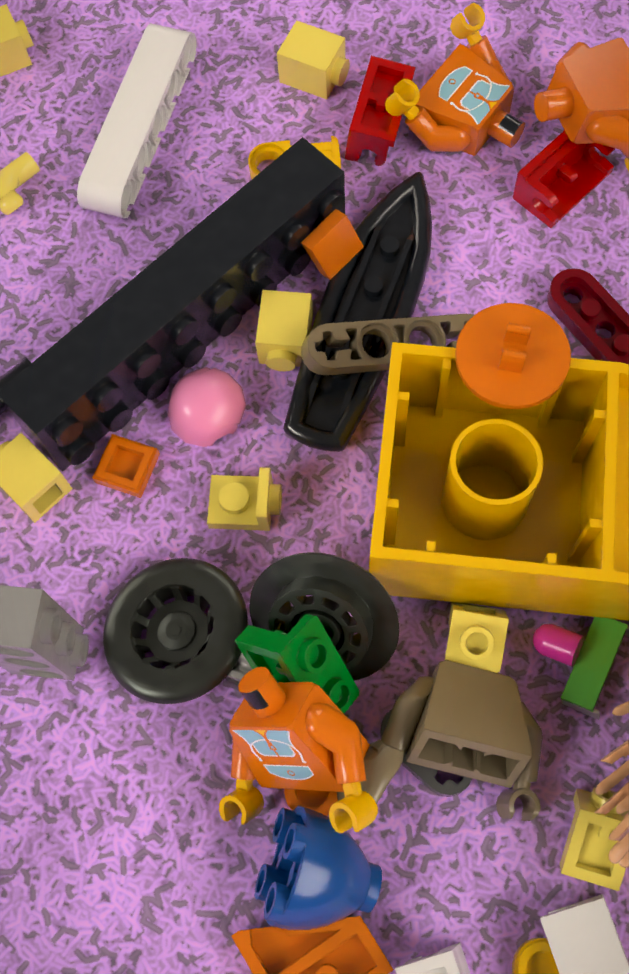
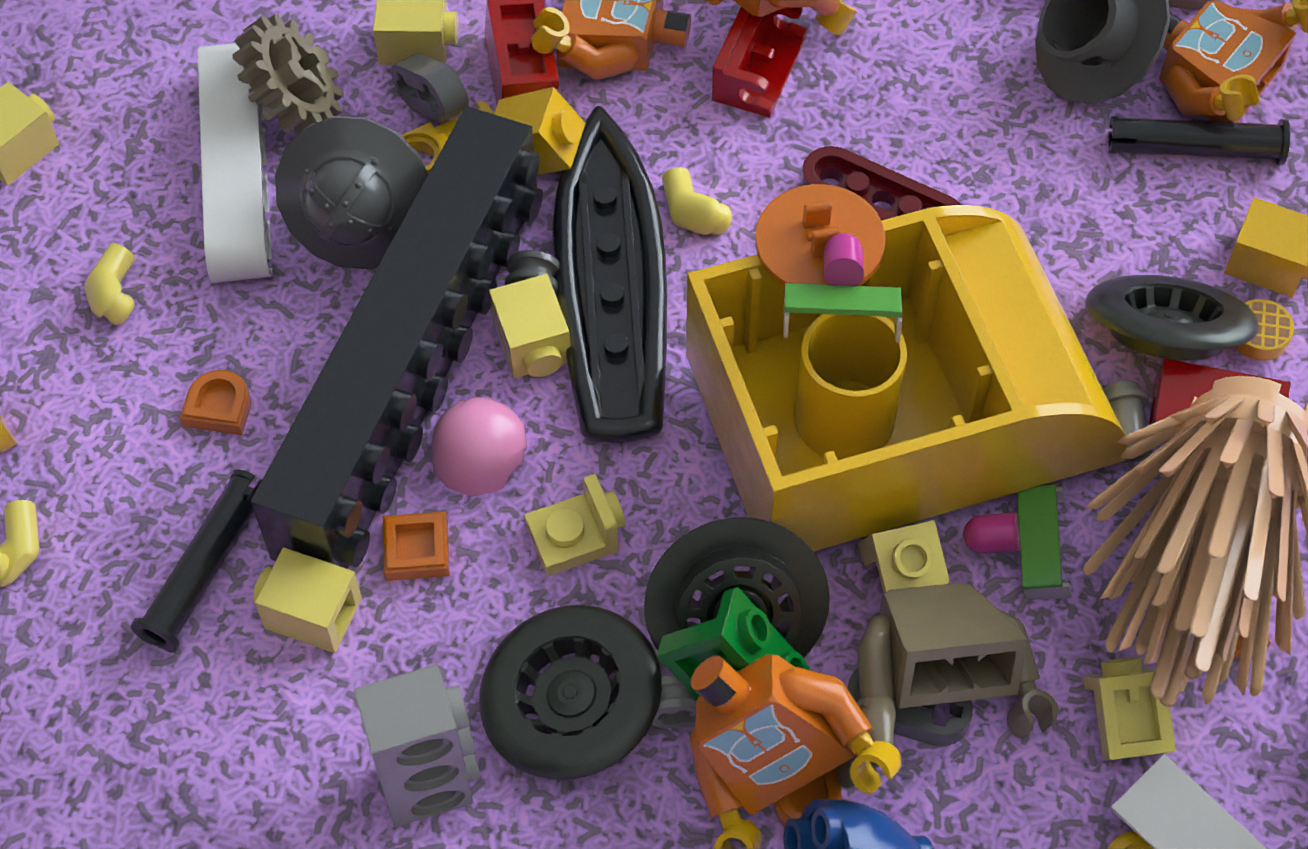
camera: 30 degrees left, 10 degrees down
(43, 300) = (217, 403): none -> orange tile
(195, 166) = (347, 189): none -> dark grey helmet
(199, 67) = (287, 73): none -> dark tan gear
(299, 112) = (429, 87): none -> dark grey beam
(307, 282) = (530, 264): none -> dark grey bush
(332, 244) = (545, 212): orange tile -> none
(368, 175) = (553, 123): none -> yellow brick
(389, 330) = (661, 284): dark tan beam -> none
(452, 281) = (691, 209): none -> light yellow arm
(503, 413) = (842, 295): none -> bright green piece

